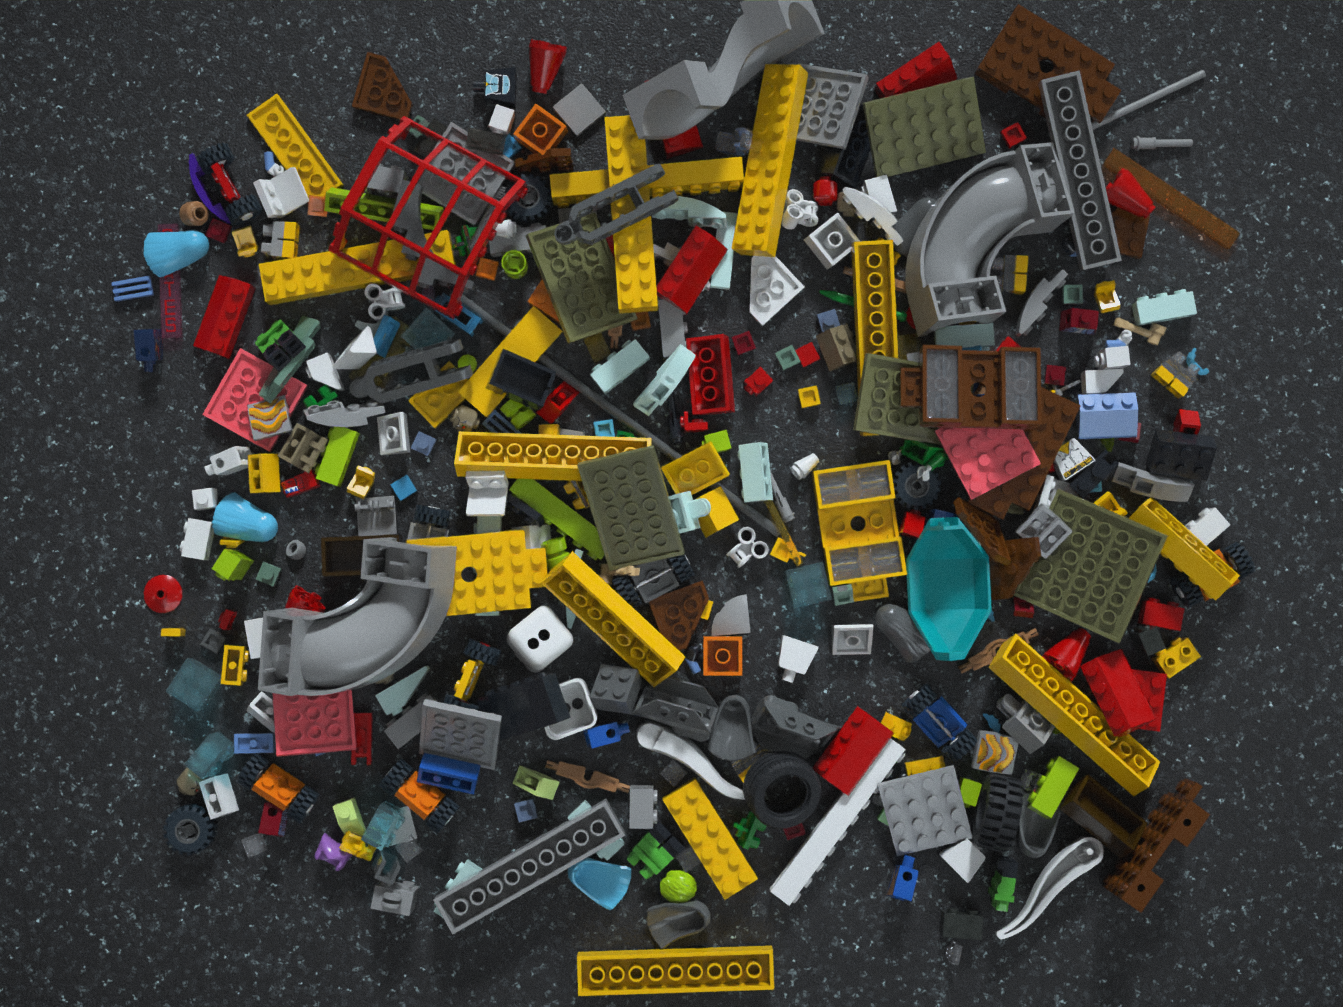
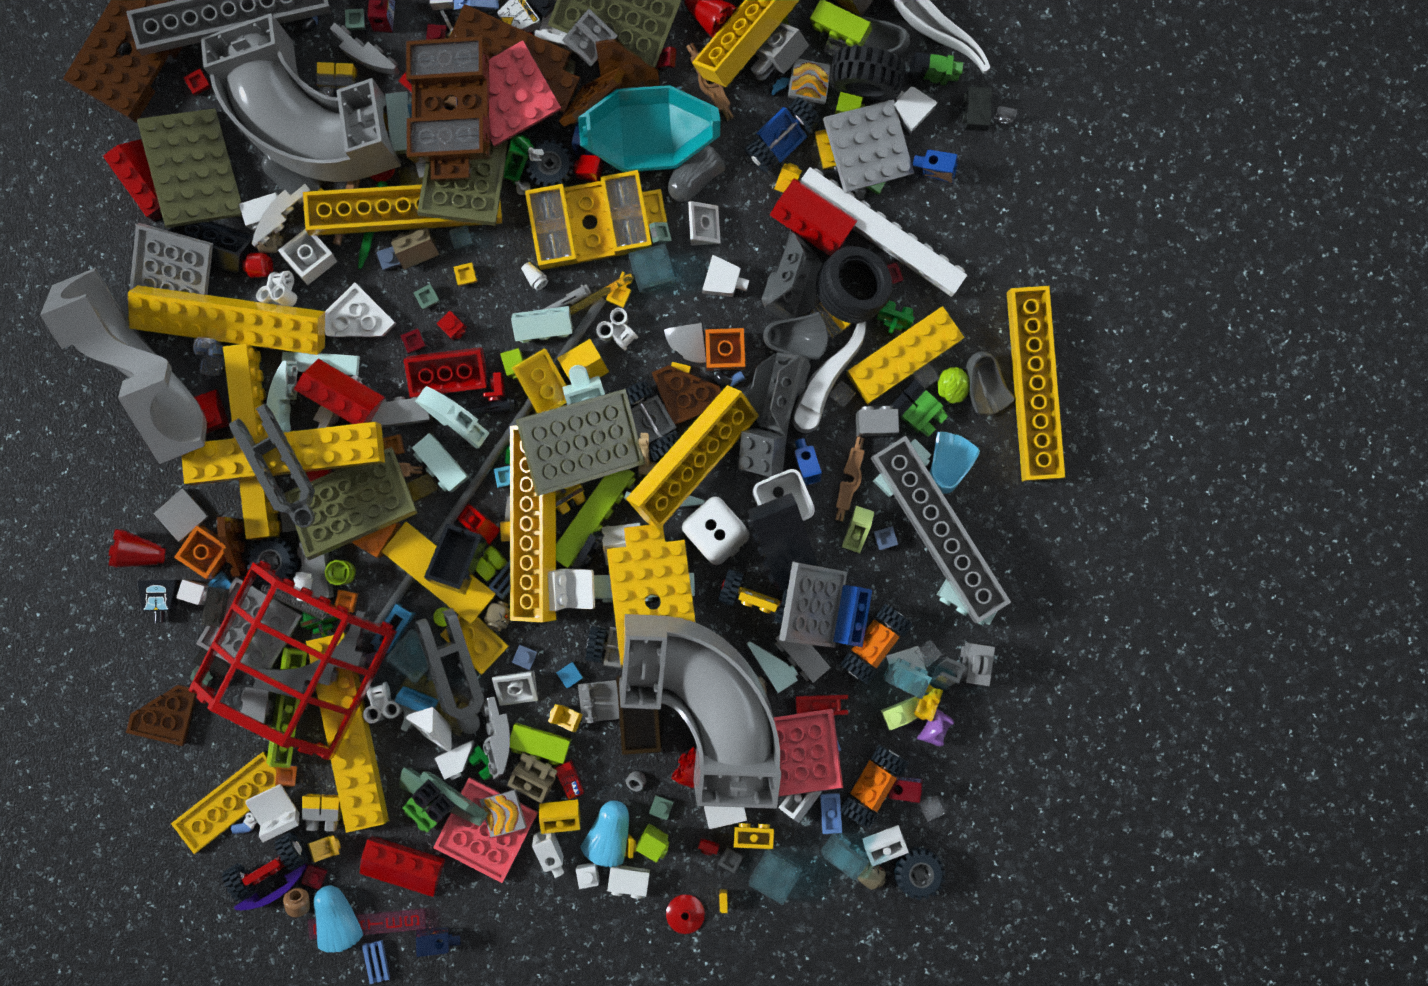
camera: 85 degrees left, 0 degrees up
(555, 550) = (627, 518): lime wheel -> none
(807, 354) = (423, 277): red tile -> none

